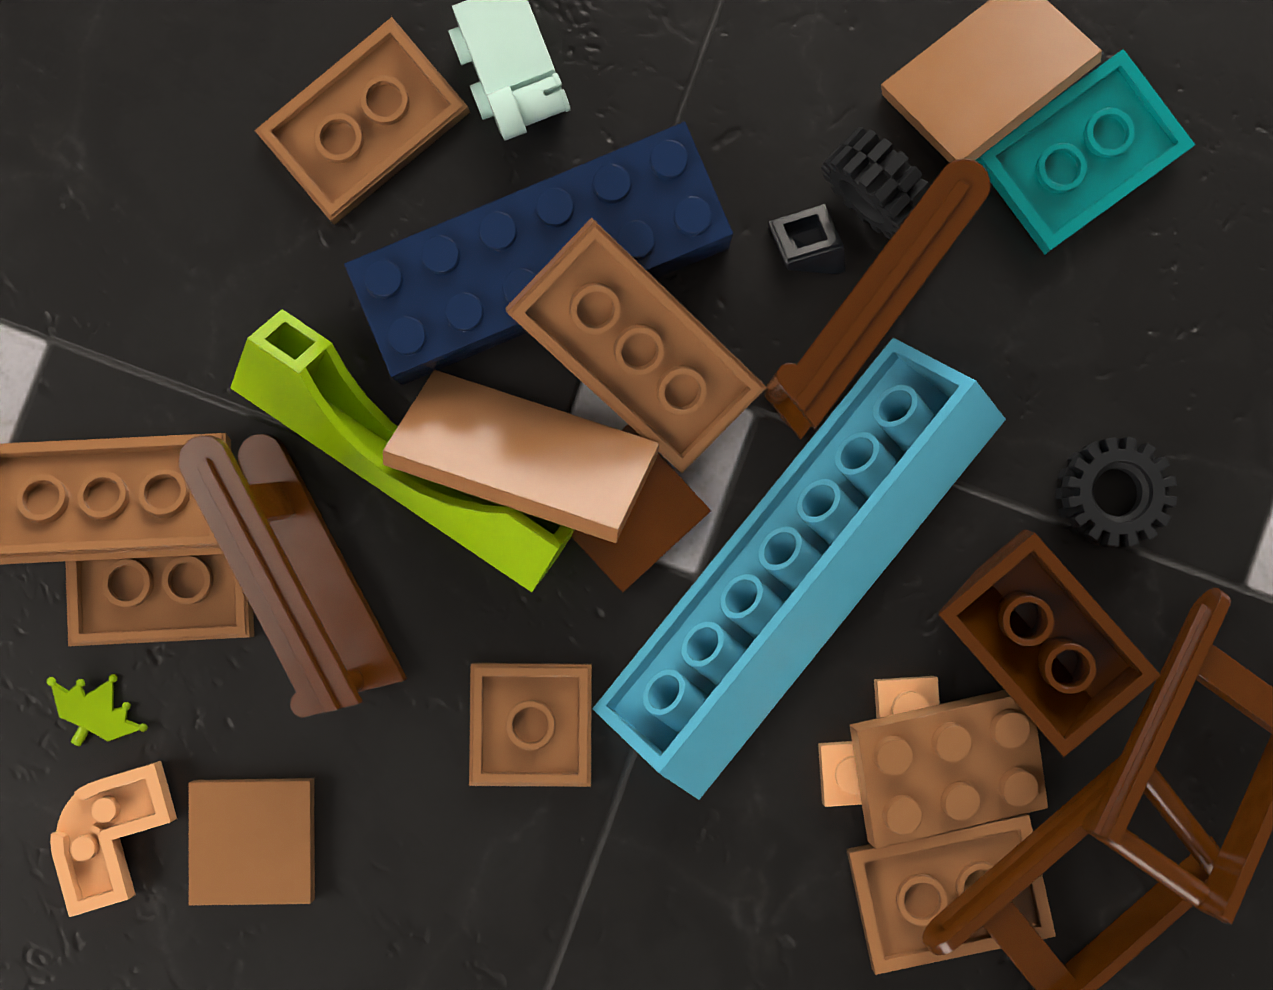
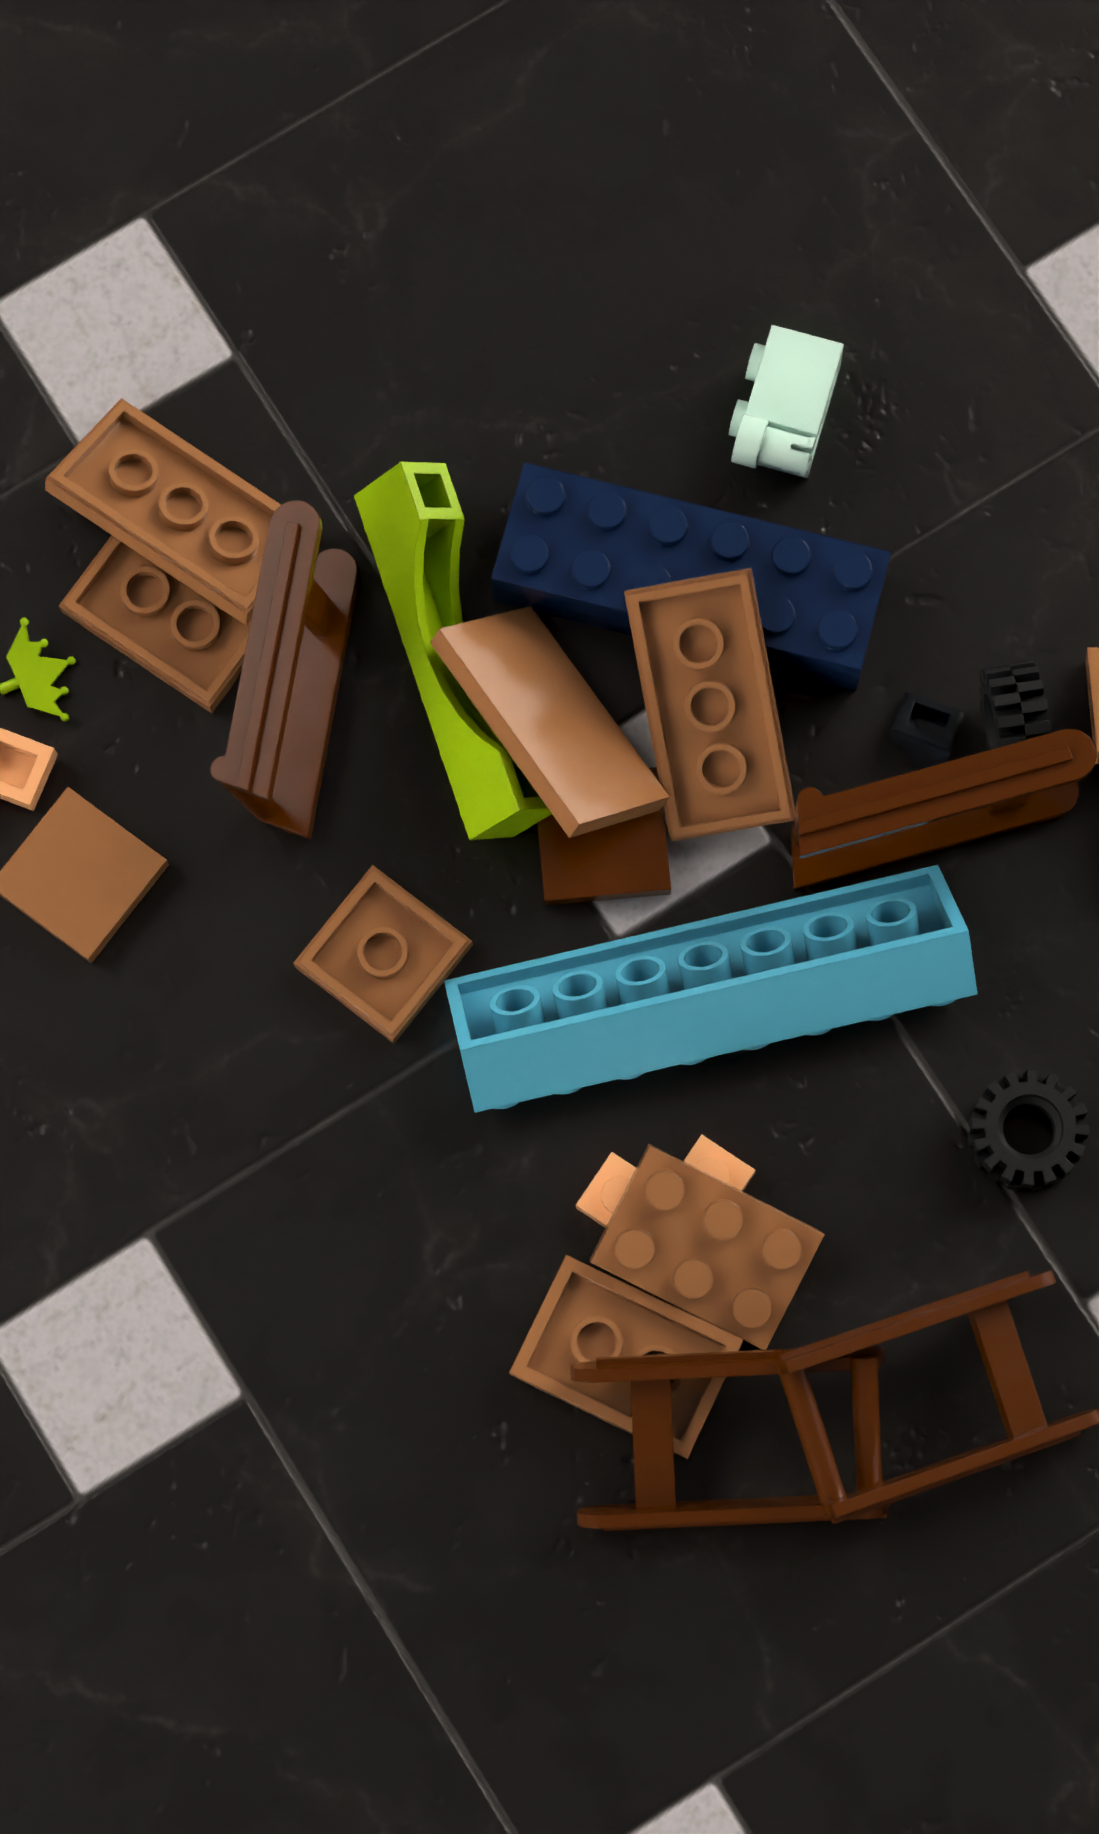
camera: 40 degrees right, 10 degrees down
(363, 120) = (629, 366): medium nougat tile -> none
(1047, 641) = (866, 1198): reddish brown slope -> none

